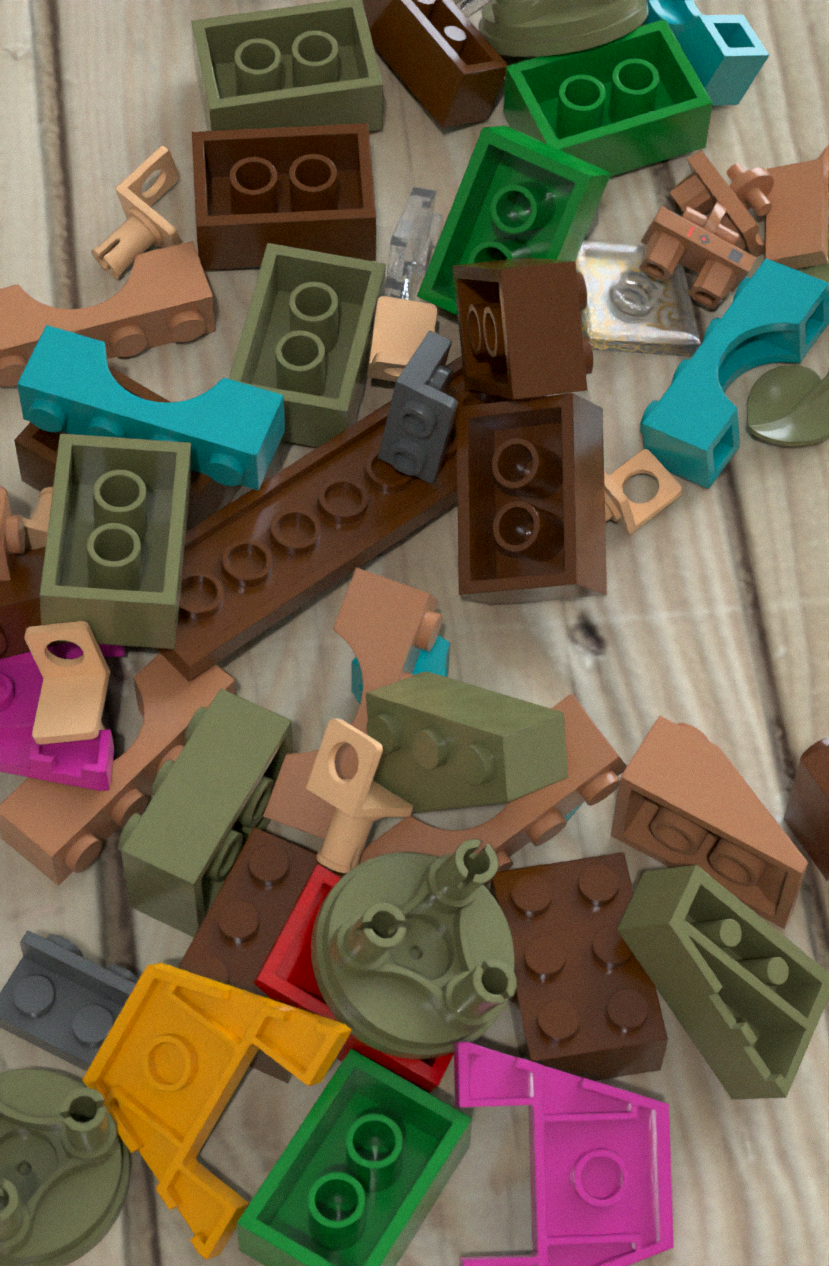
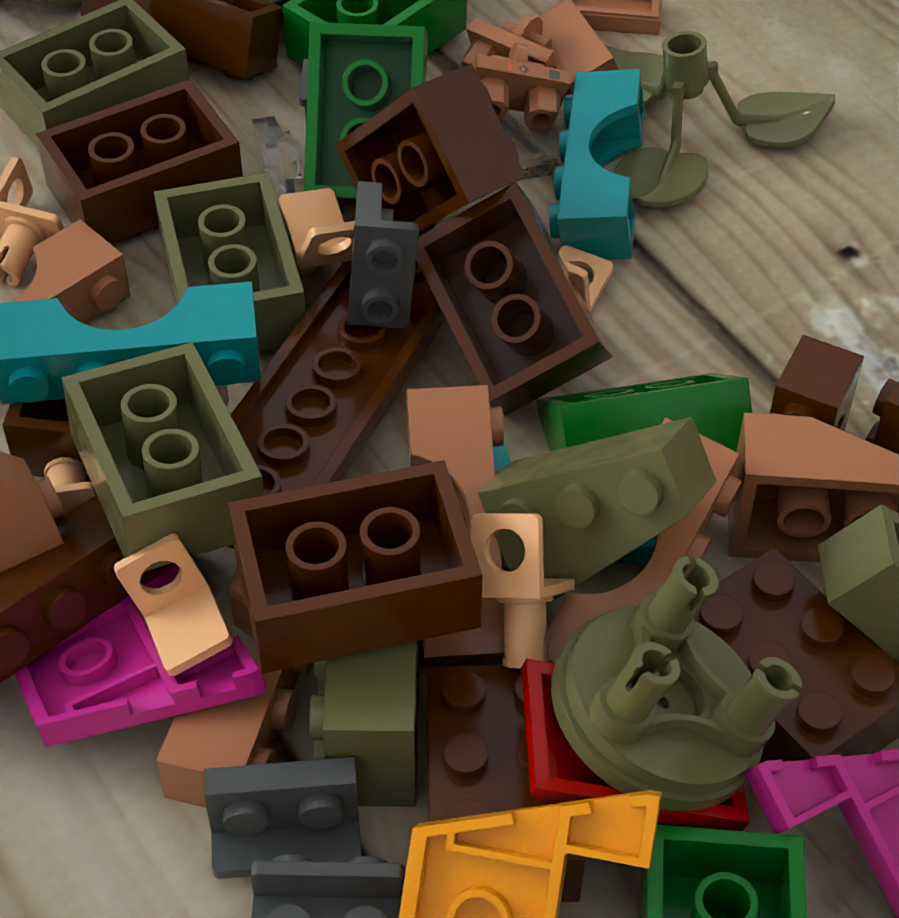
camera: 25 degrees left, 10 degrees down
(79, 901) = (282, 811): none -> dark grey bracket
(208, 720) = (355, 565): none -> reddish brown brick
(611, 668) = (710, 399): none -> green slope
(758, 724) = (818, 382): none -> reddish brown brick

